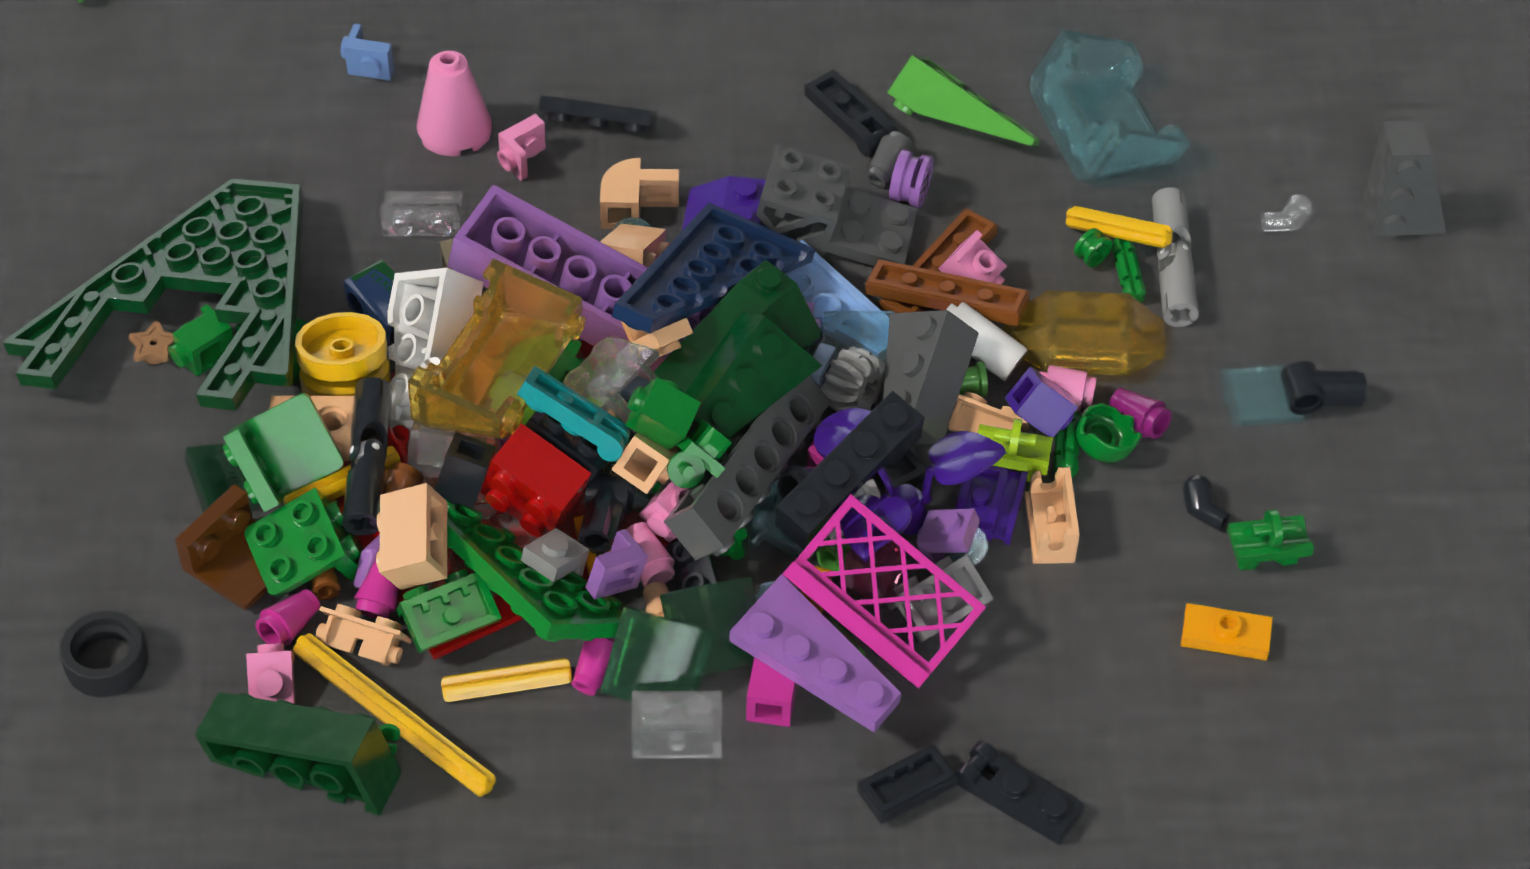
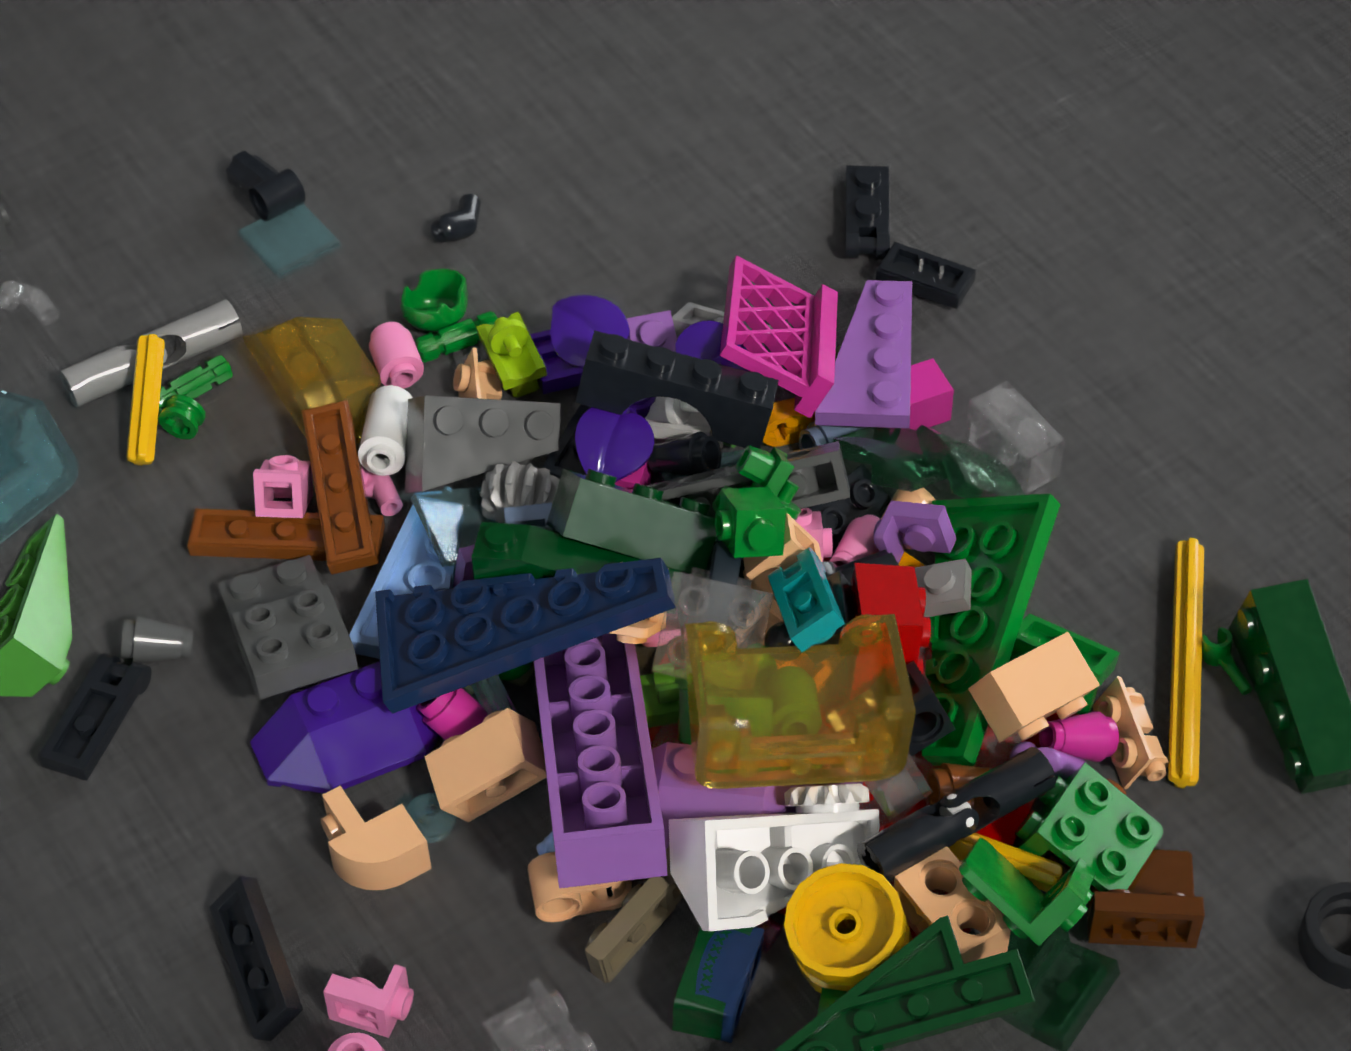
camera: 120 degrees left, 0 degrees up
(271, 673) = (1237, 775): bright pink bracket -> none
(287, 618) = (1174, 803): dark pink cone -> none
(506, 679) = (1083, 605): yellow axle -> none
(911, 178) = (187, 597): medium lavender wheel -> none
(1041, 403) = (447, 340): dark purple brick -> none
(1052, 519) = (572, 278): light nougat hinge -> none
(1149, 414) = (383, 295): magenta cone -> none
(1226, 631) = (592, 157): light orange plate -> none
(1269, 540) = (482, 152): green hips -> none

